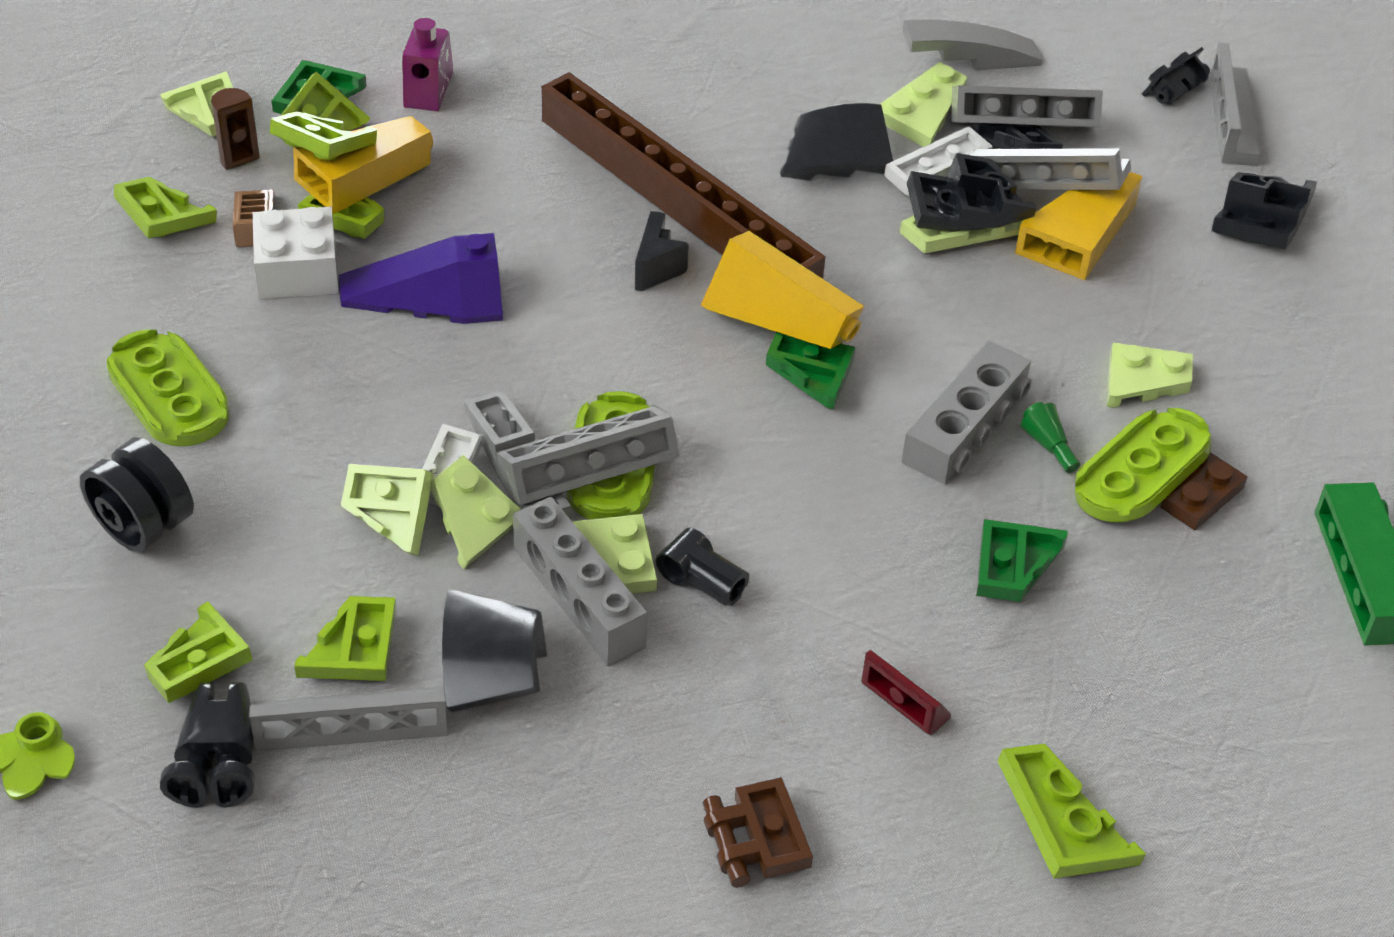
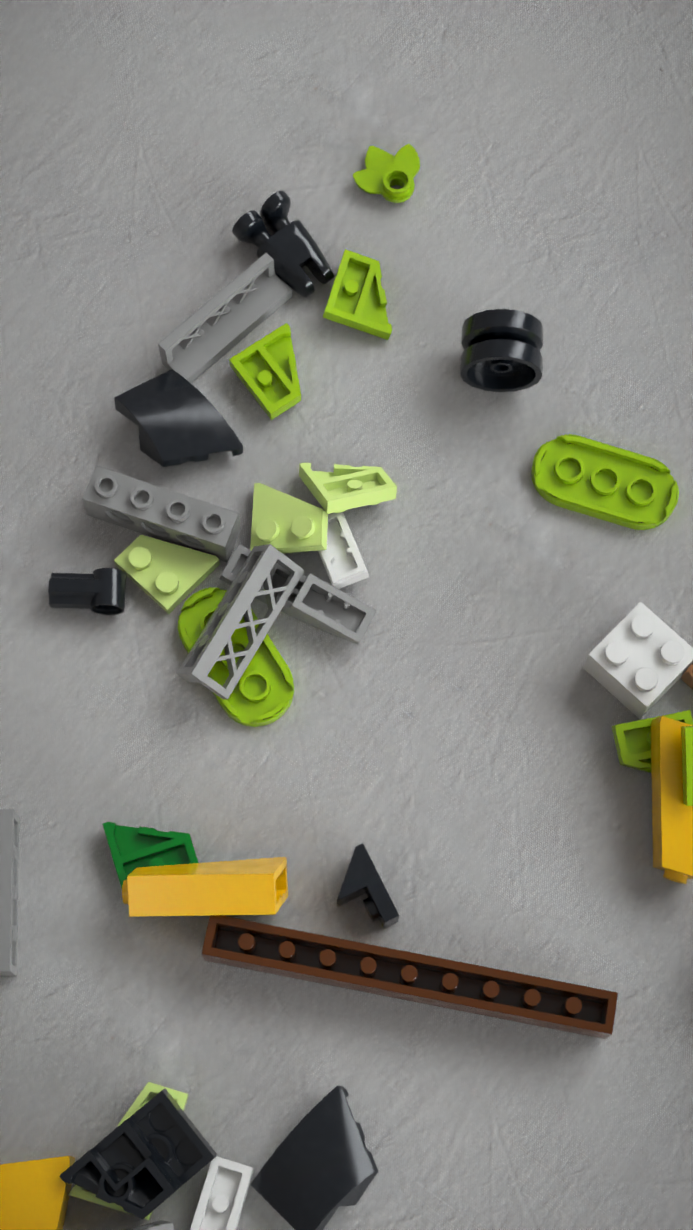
camera: 145 degrees right, 25 degrees up
(442, 278) = (508, 722): dark purple wedge -> none

